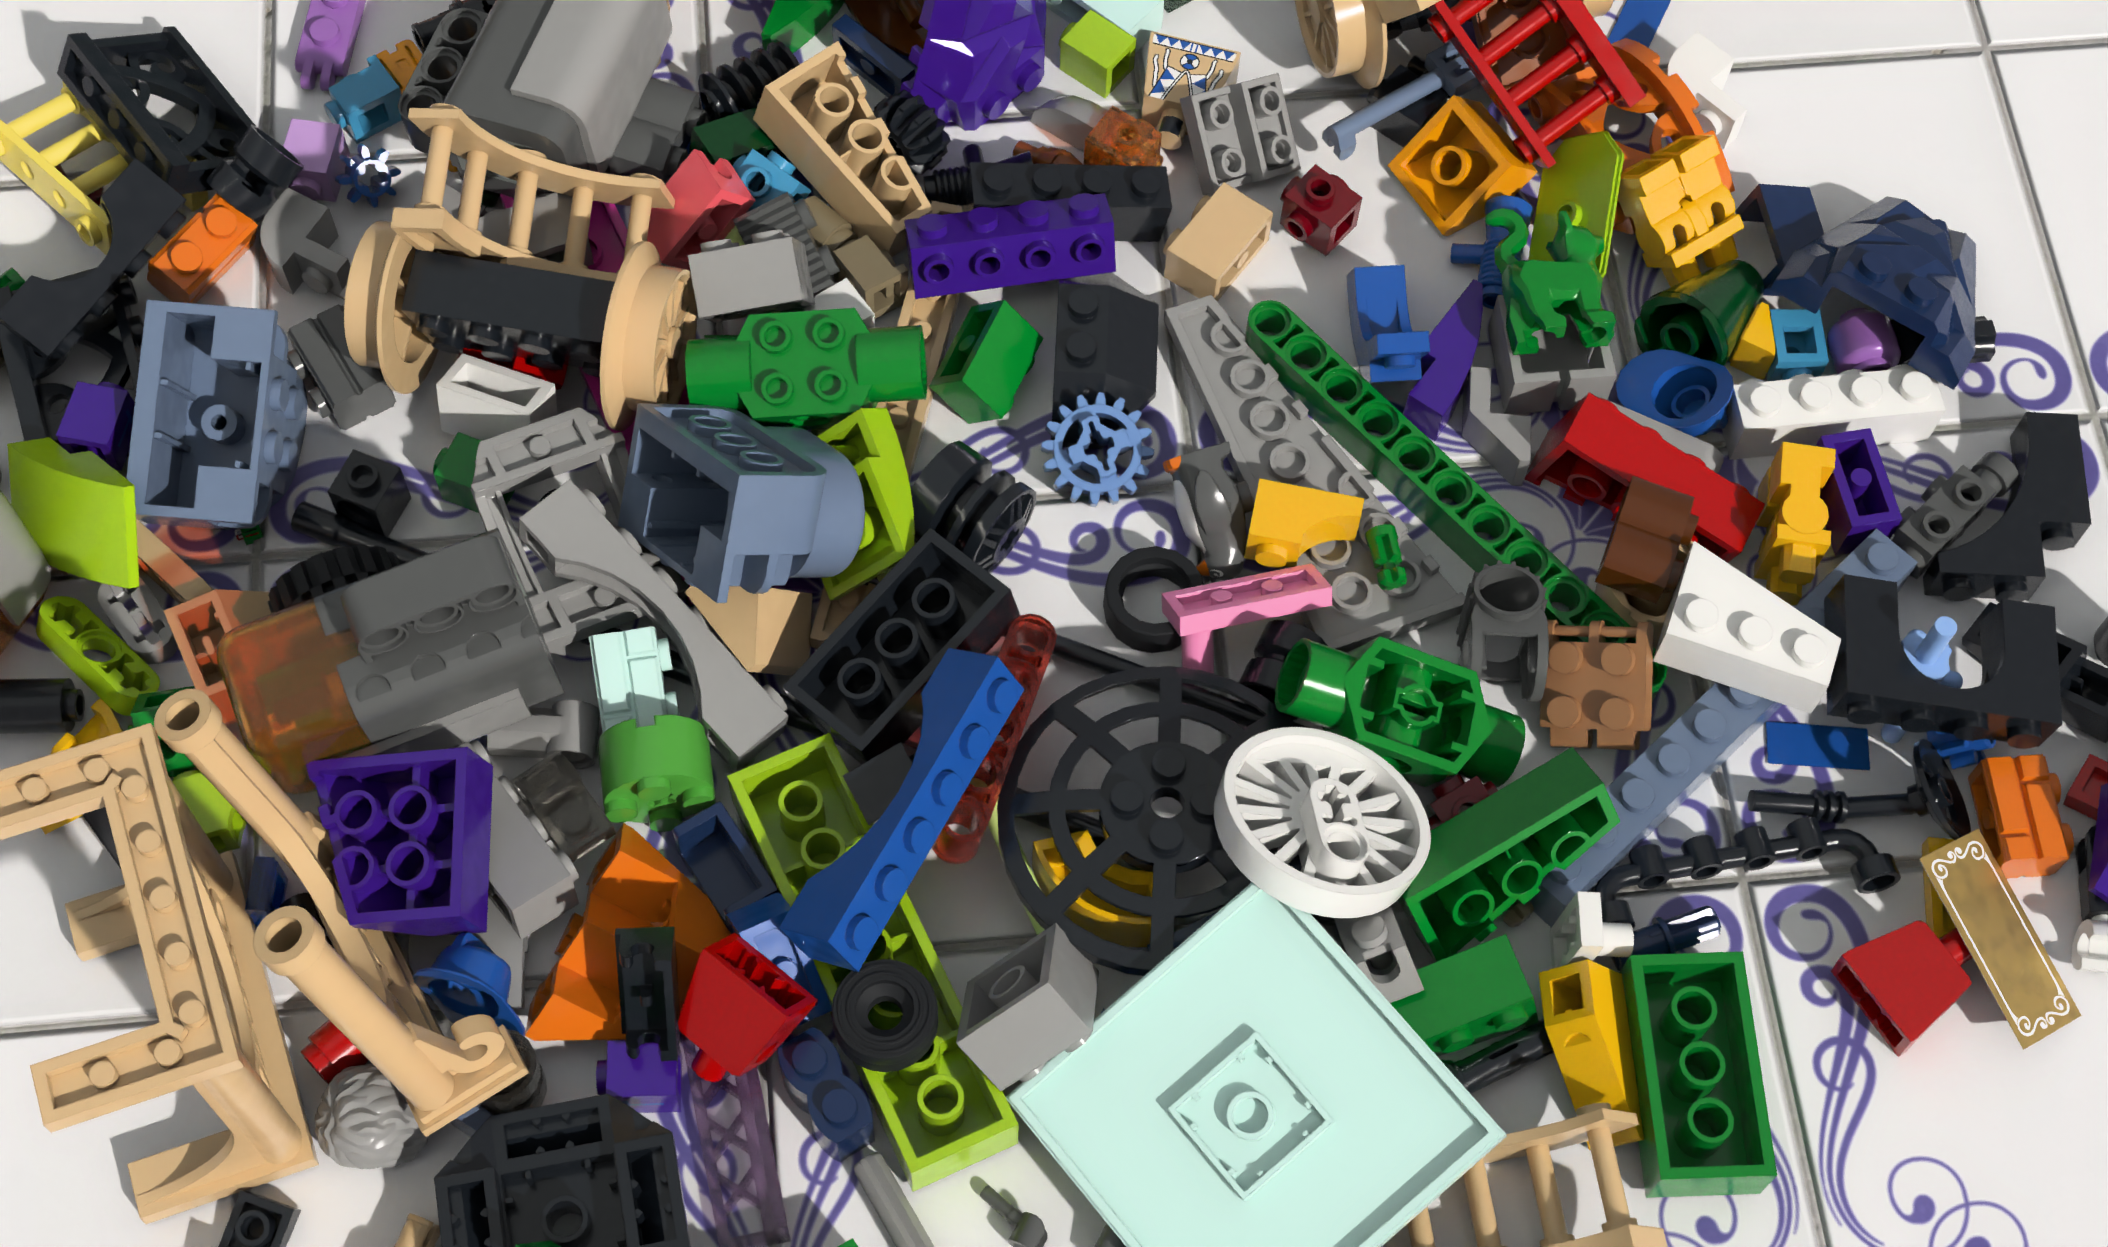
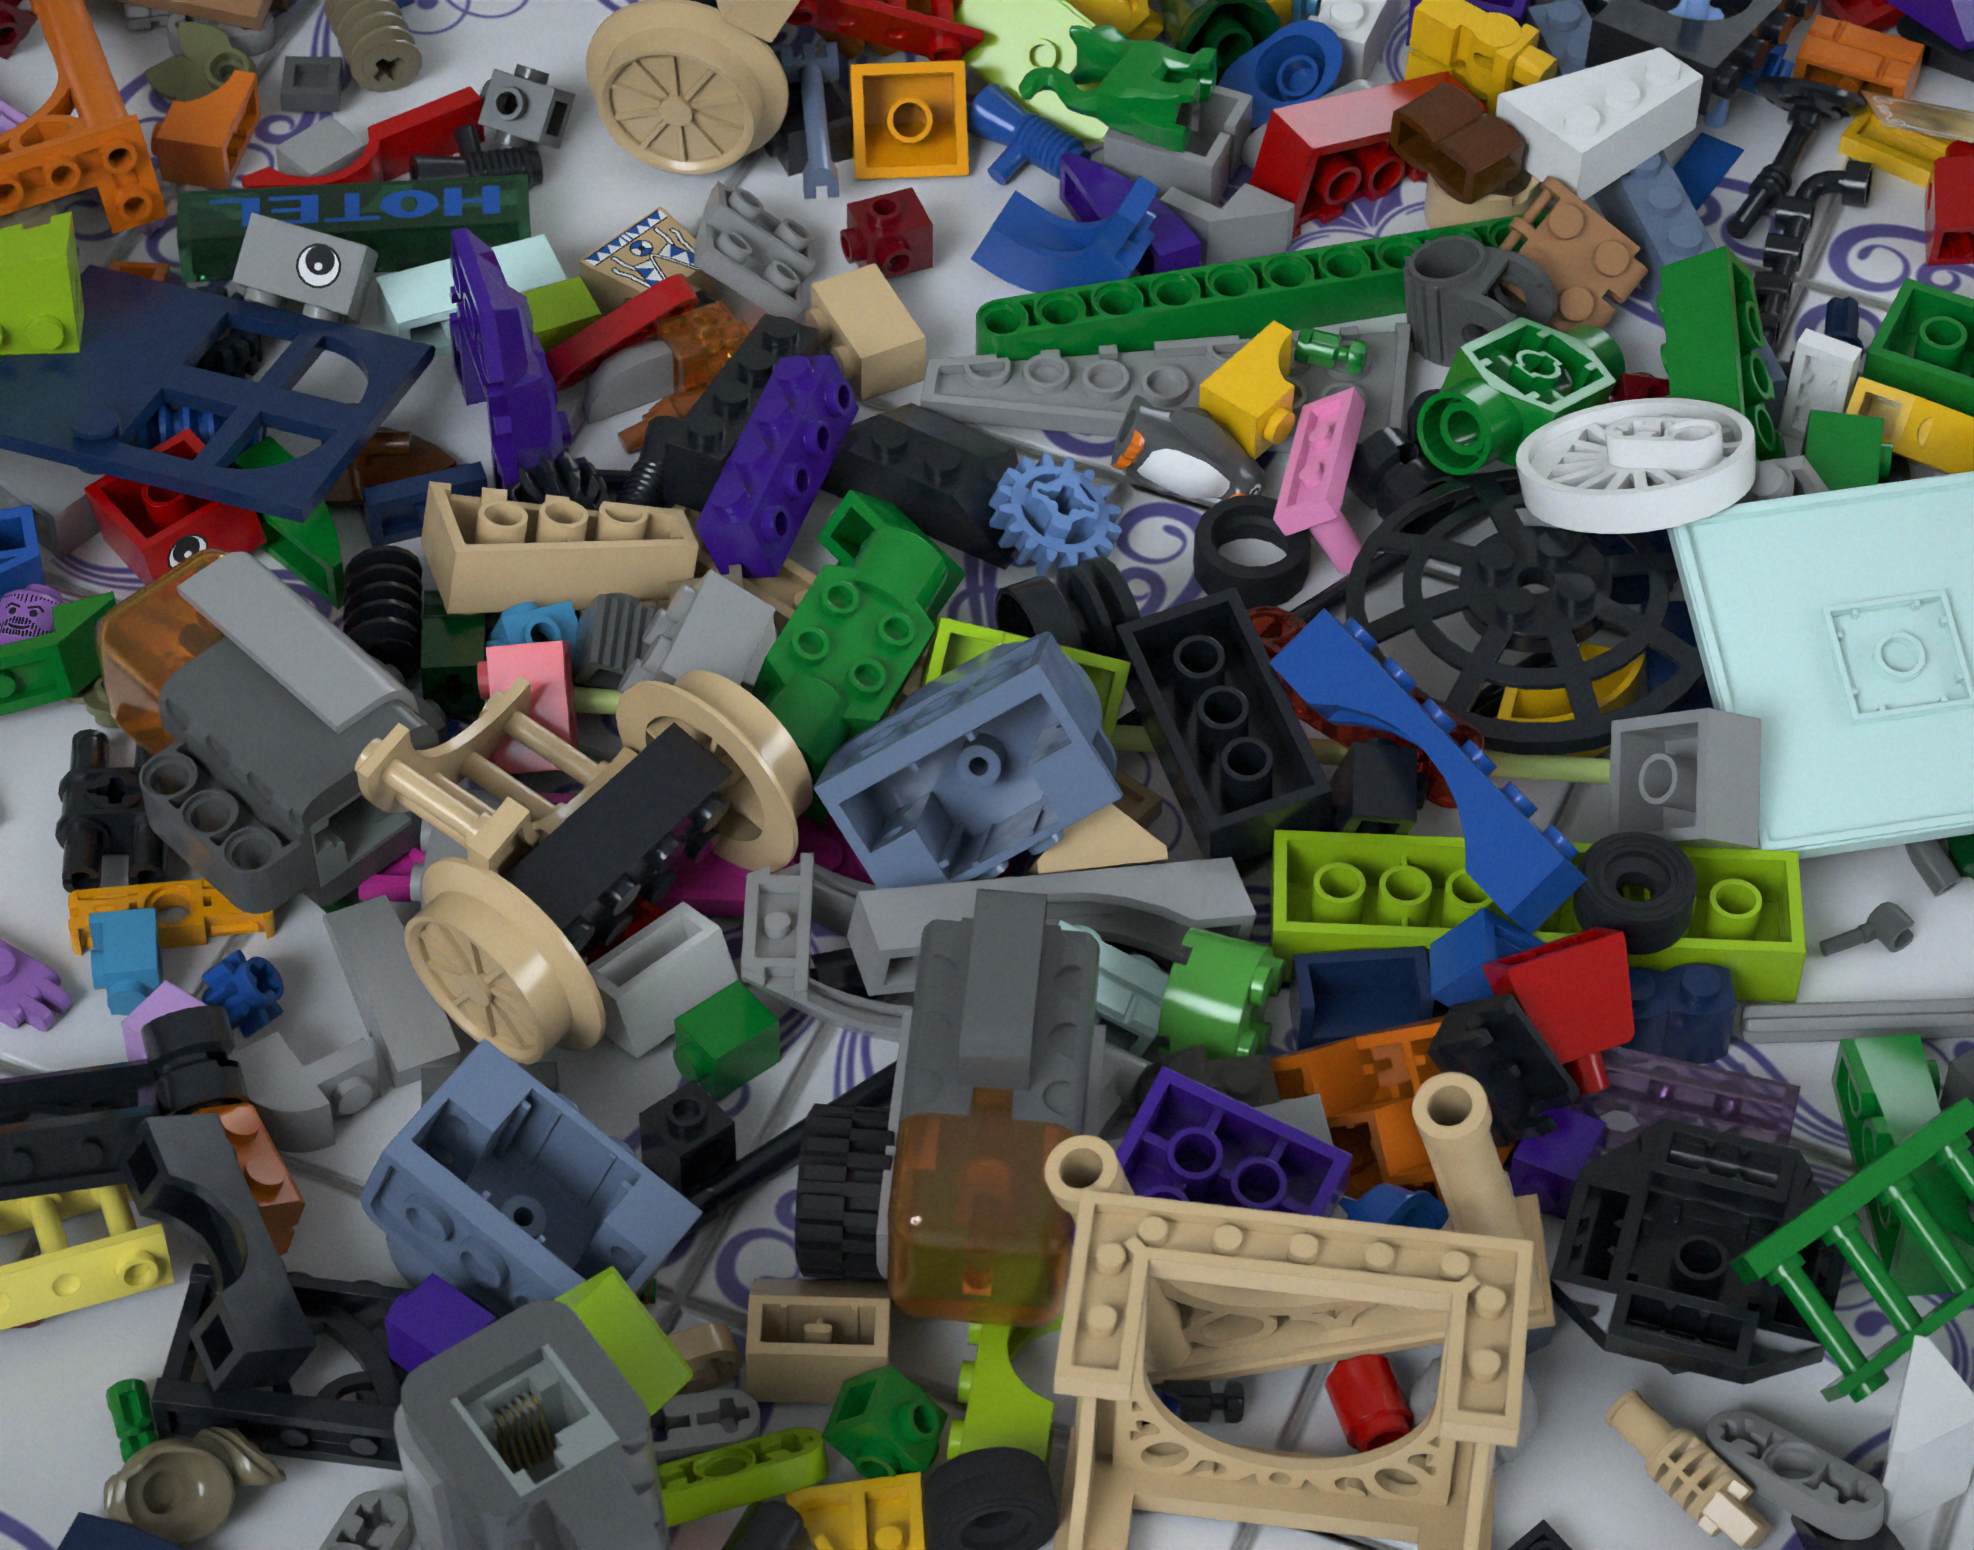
camera: 60 degrees left, 15 degrees down
(1099, 88) = (619, 329): none -> red beam

